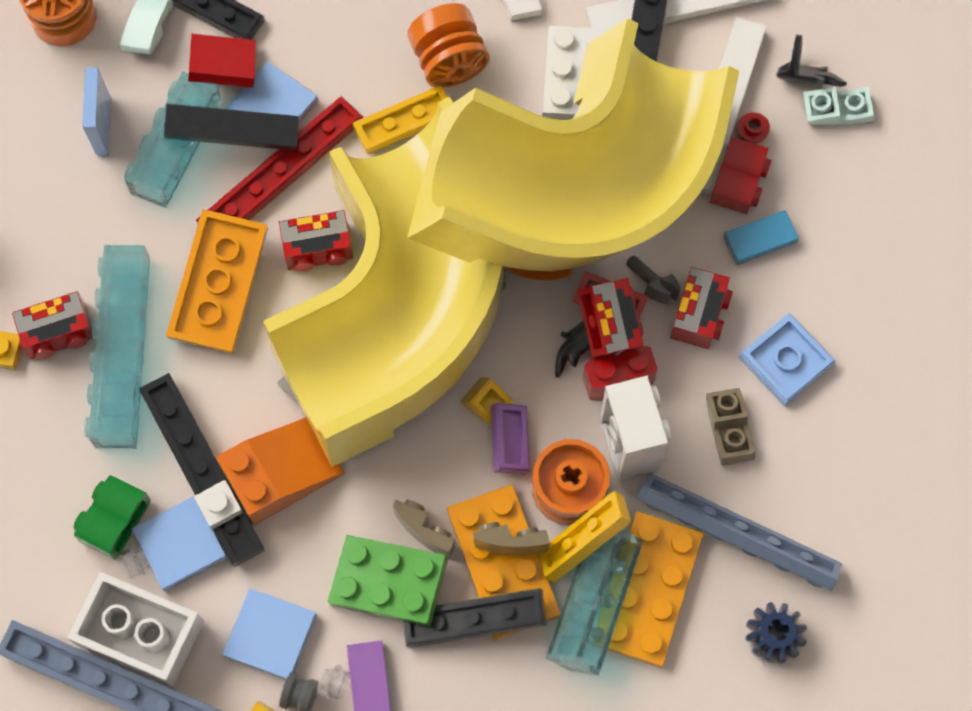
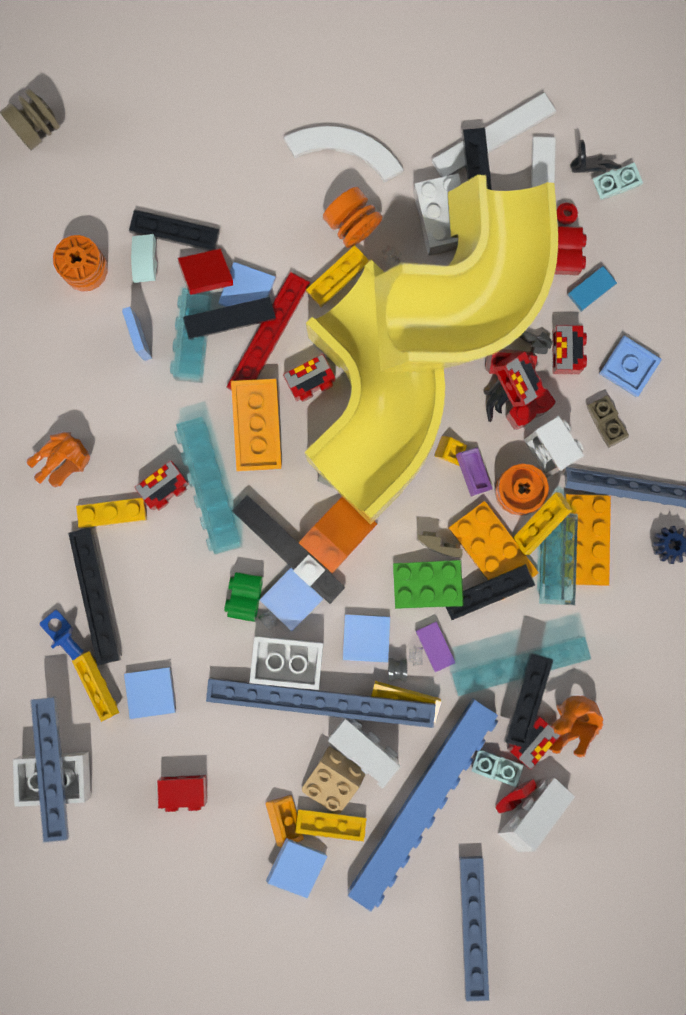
camera: 15 degrees left, 15 degrees up
(498, 540) = (491, 540): dark tan slope -> none

